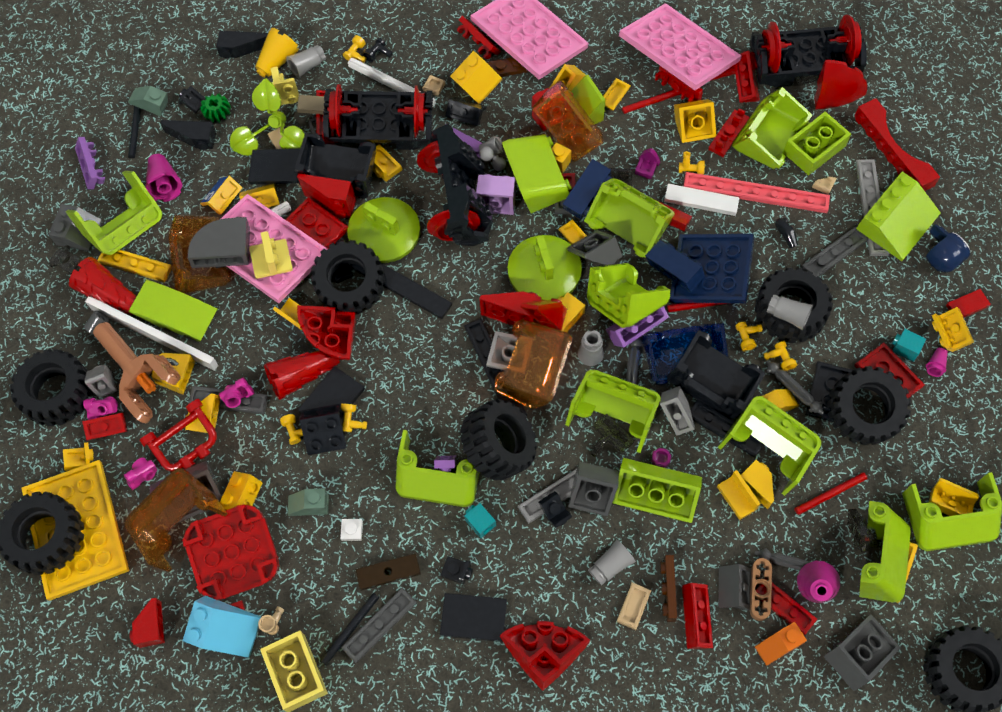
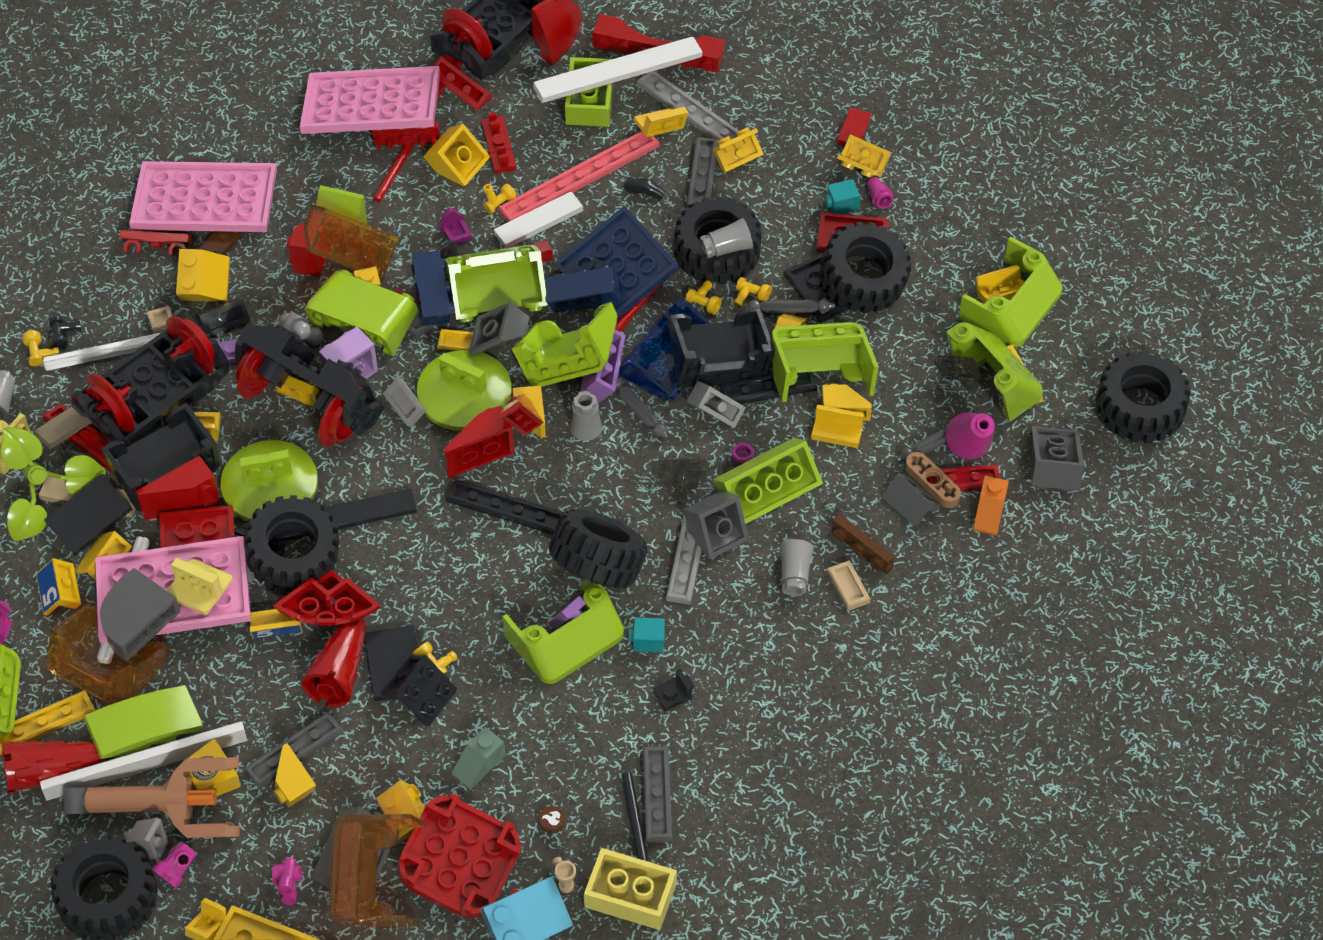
camera: 50 degrees left, 10 degrees down
(104, 426) = (199, 876): red plate -> none
(201, 451) = (320, 830): red bar -> none
(234, 393) = (301, 732): dark pink plate -> none
(288, 421) = (397, 719): yellow piece -> none
(307, 580) = (552, 819): none -> reddish brown tile
(351, 529) = (543, 746): white plate -> none
(375, 574) = (622, 734): dark brown tile -> none
(473, 617) = (729, 713): black tile -> none
(501, 350) = (519, 478): light grey slope -> none
(503, 246) = (404, 402): none -> light grey tile
(534, 364) = (558, 464): clear orange windscreen -> none
(544, 649) = (815, 682): red brick -> none
(554, 509) = (702, 571): black bracket -> none
(570, 76) = (294, 211): yellow slope -> none
(615, 93) = (353, 183): yellow tile -> none
(617, 399) = (660, 438): lime windscreen -> none
(697, 616) = (905, 547): red slope -> none
(770, 127) = (528, 121): lime windscreen -> none
(824, 185) = (629, 125): tan tile -> none
(830, 493) = (905, 365): red bar -> none
(843, 198) = (662, 121): none -> yellow panel
(846, 142) = (617, 69): none -> white tile
(871, 257) = (737, 151): none -> yellow bracket
(899, 217) = (724, 98): lime slope -> none
(949, 252) = (797, 95): dark blue piece -> none

